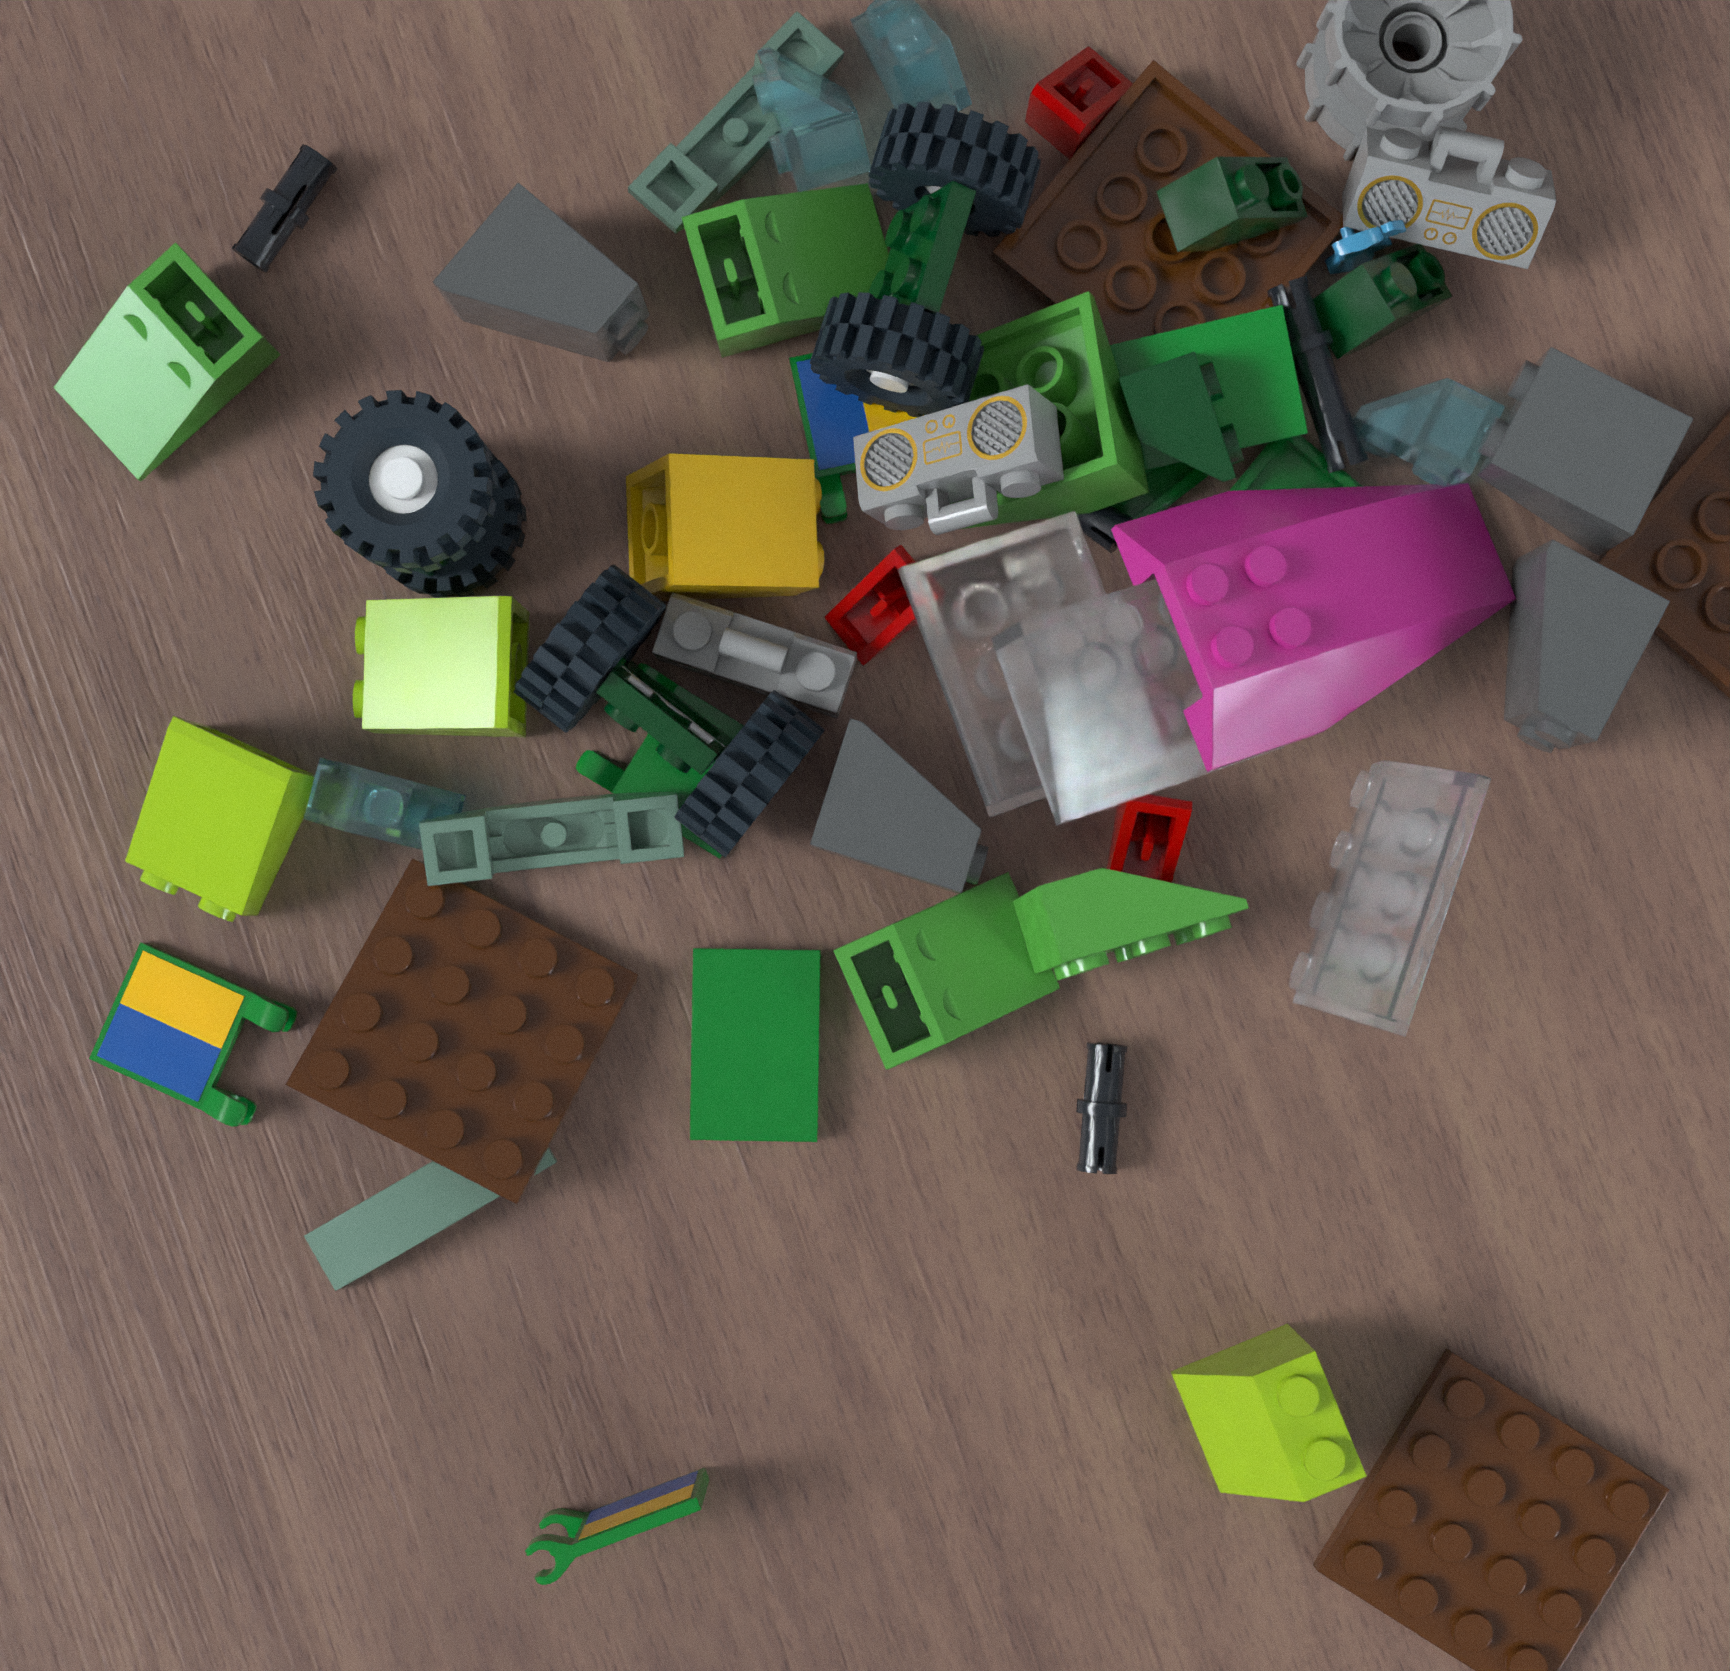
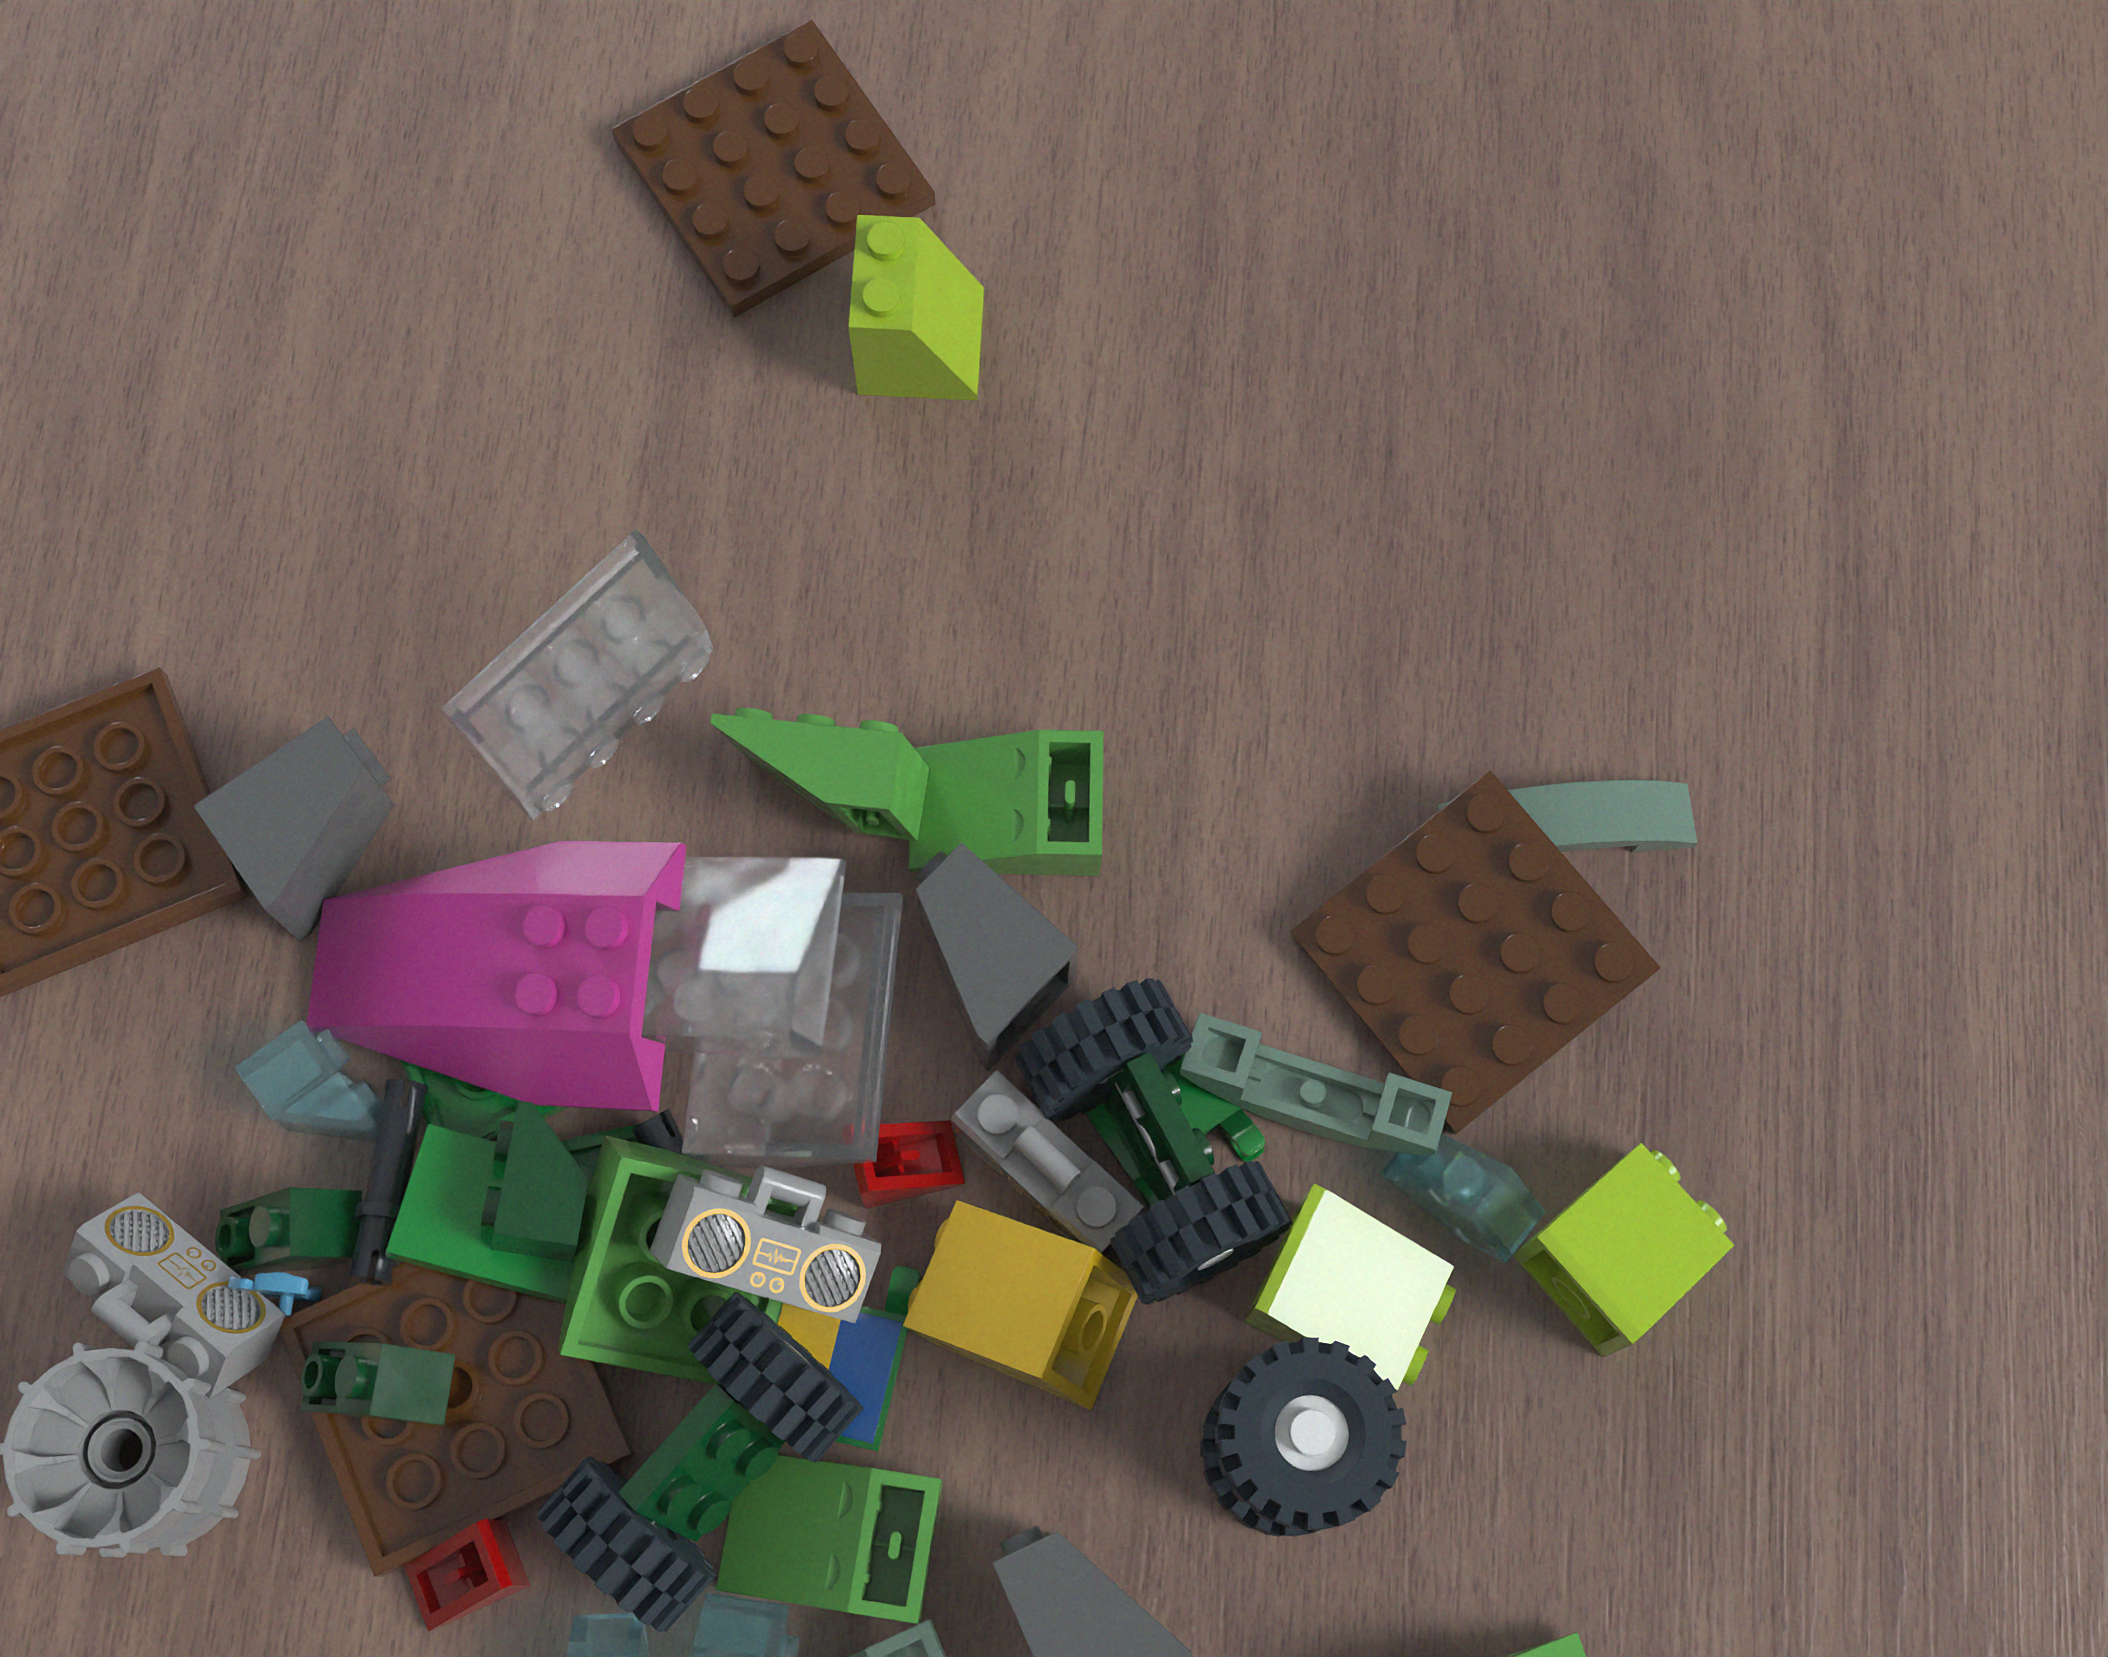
camera: 155 degrees left, 15 degrees down
(178, 1029) = (1741, 1078): flag -> none
(616, 1521) = (1511, 473): green flag -> none
(755, 1045) = (1210, 825): green tile -> none
(1101, 1108) = (927, 632): black pin -> none
(1149, 836) = (772, 827): red slope -> none
(1581, 449) = (187, 989): dark grey slope -> none

